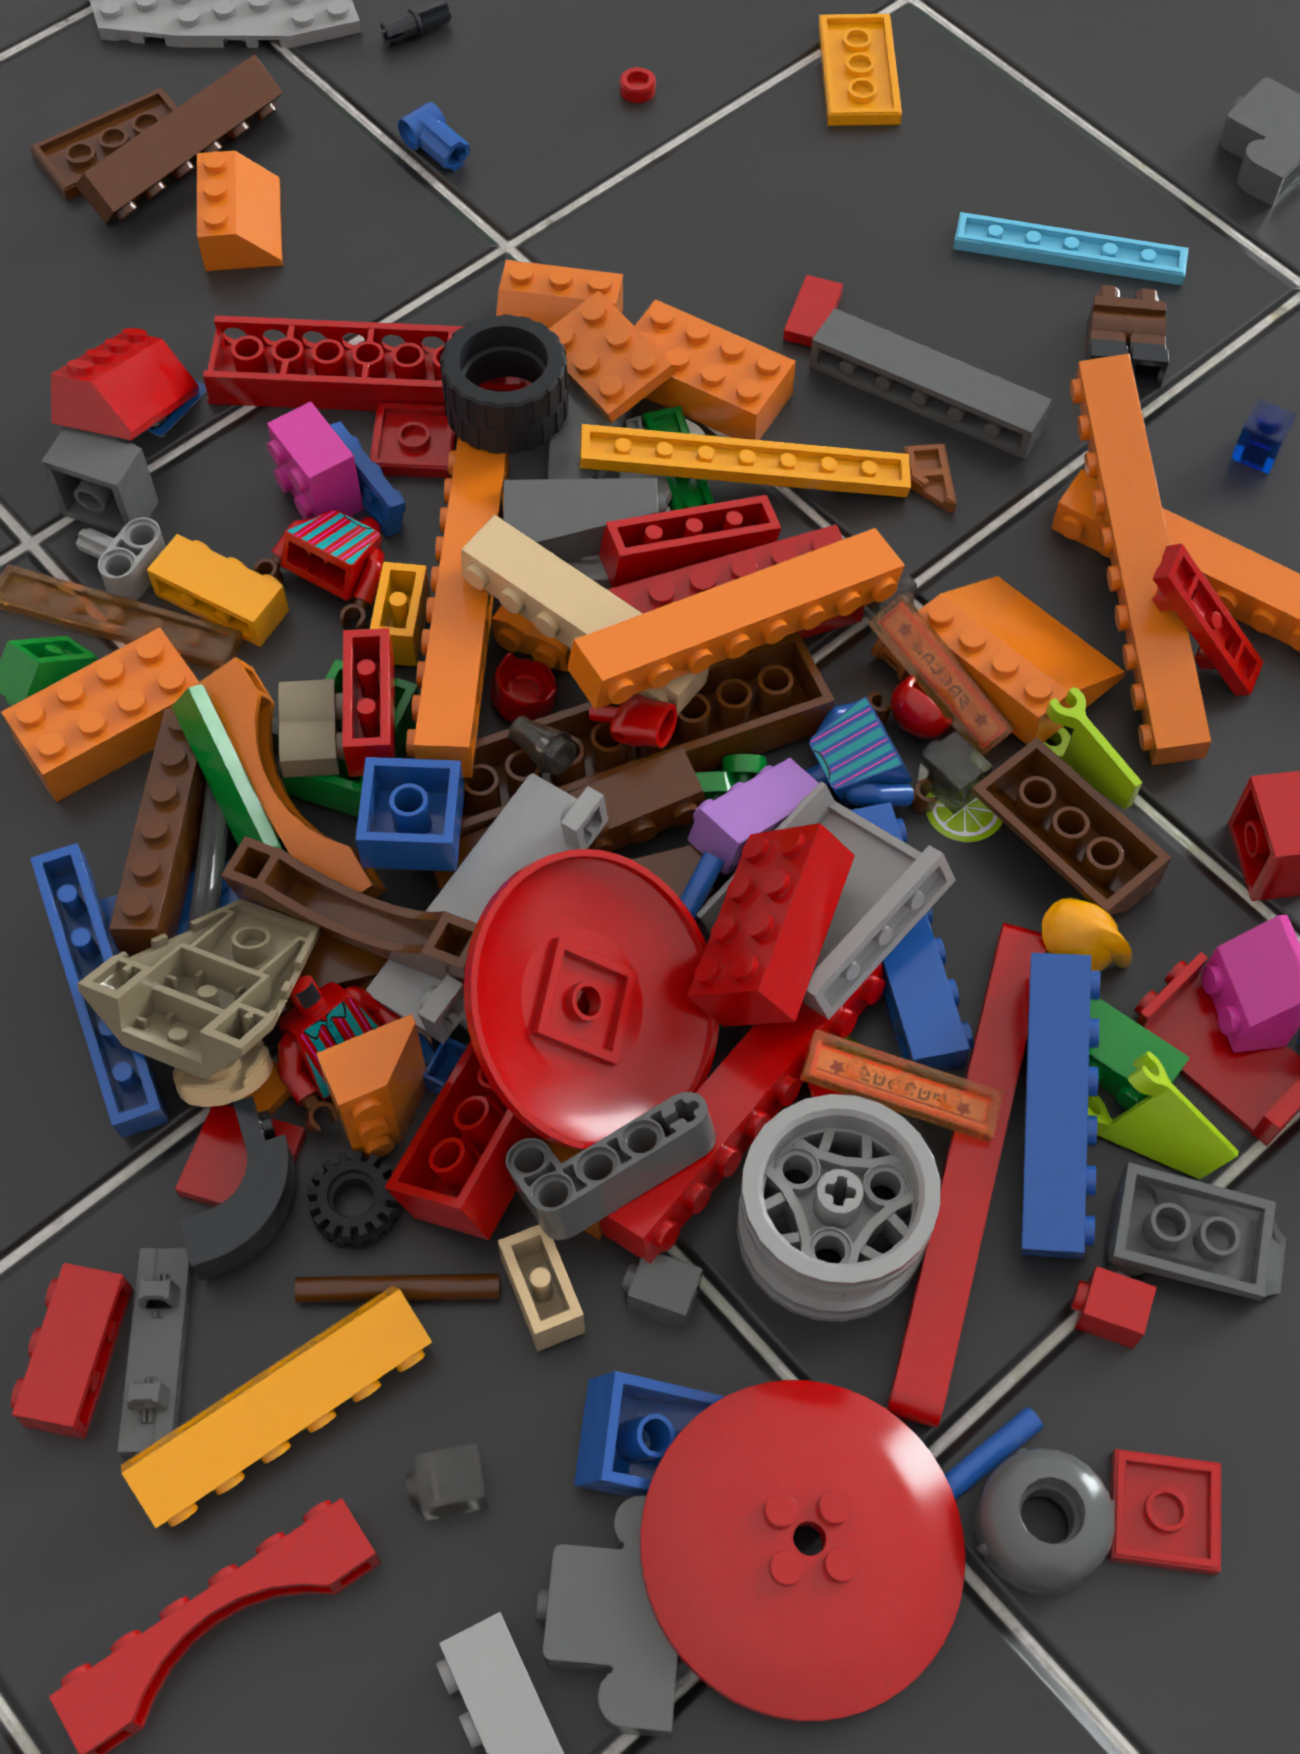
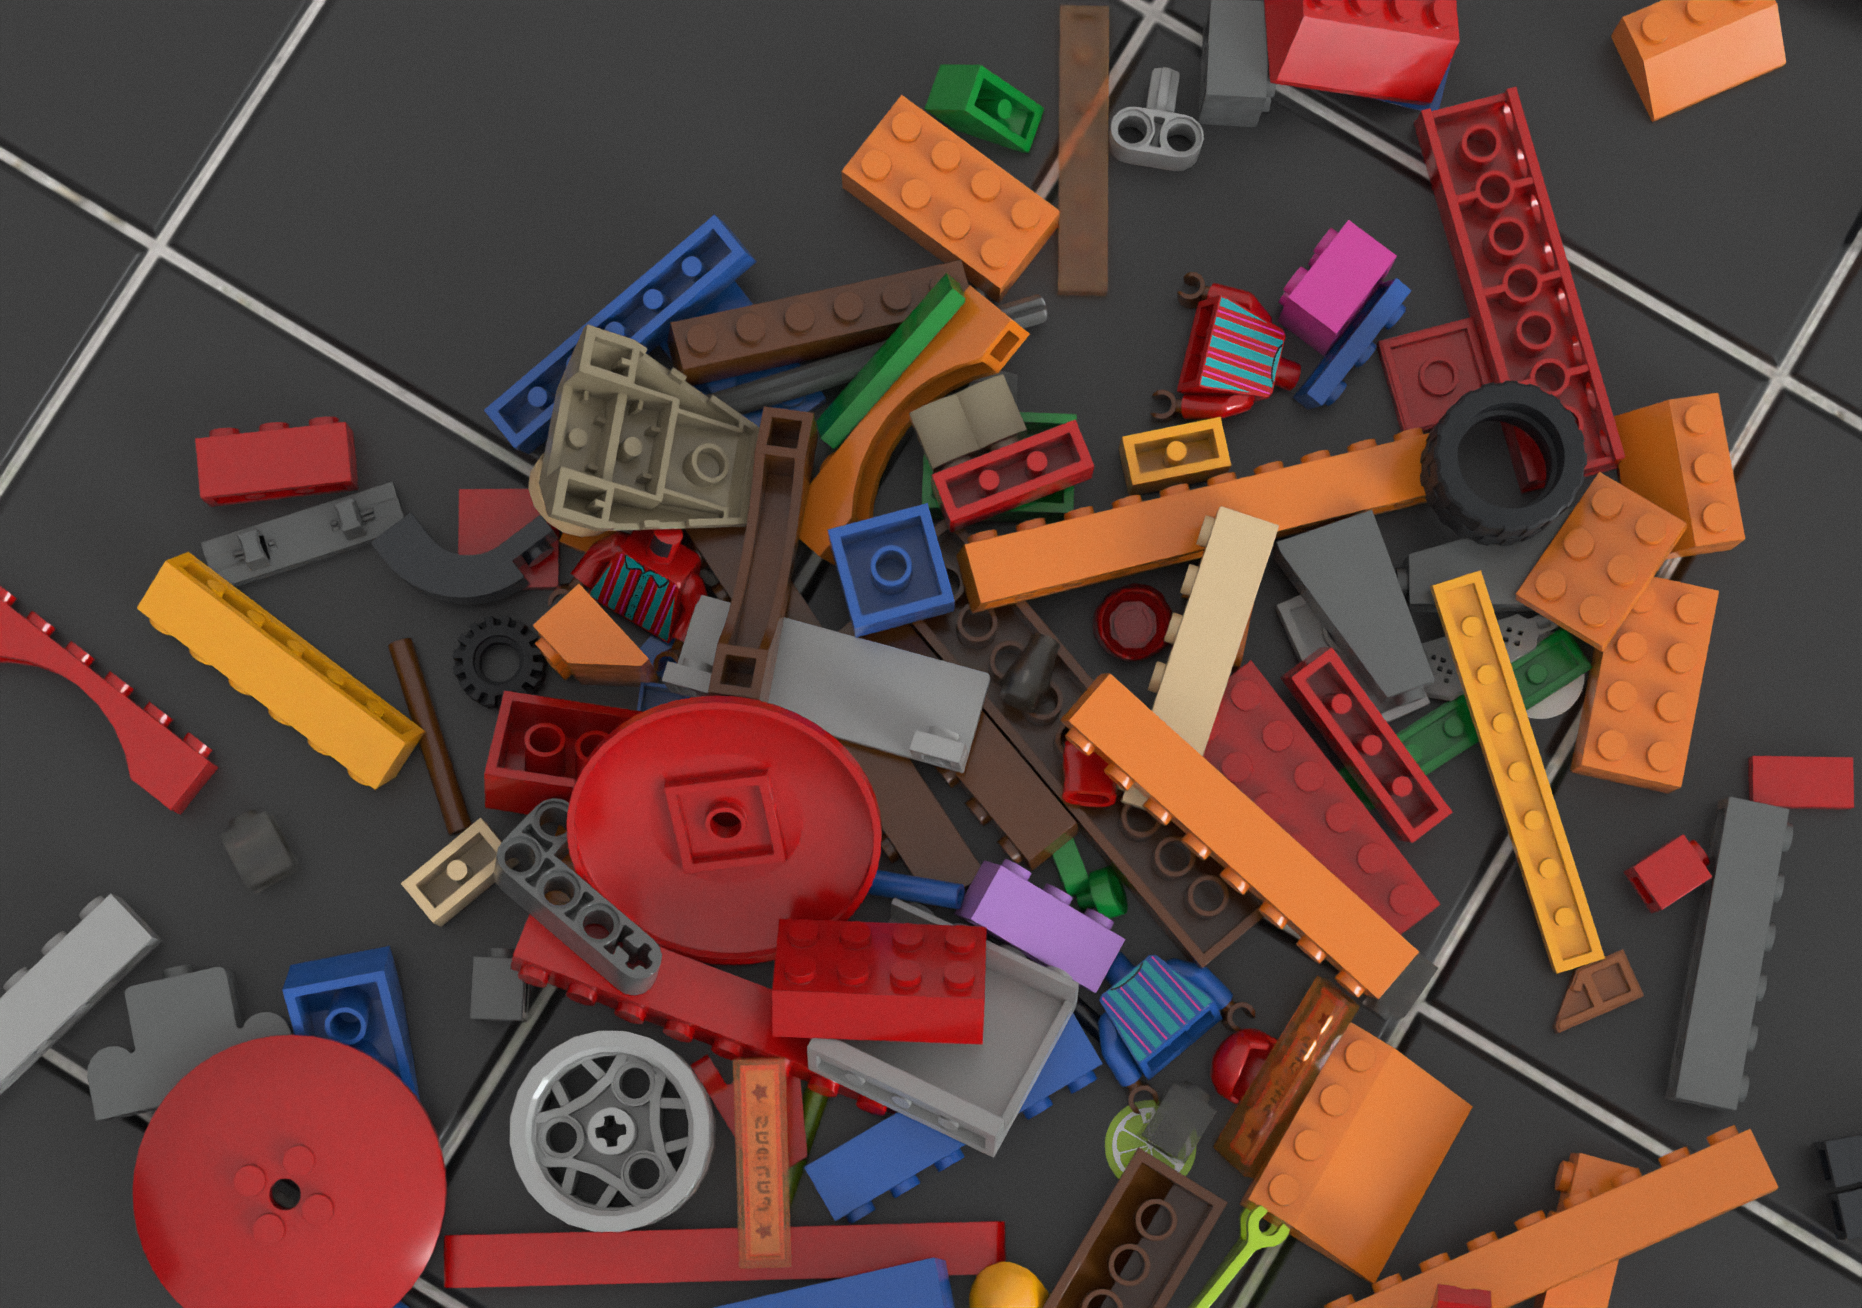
camera: 70 degrees right, 20 degrees up
(218, 589) = (1150, 247): light orange brick -> none
(856, 401) = (1669, 872): none -> red brick

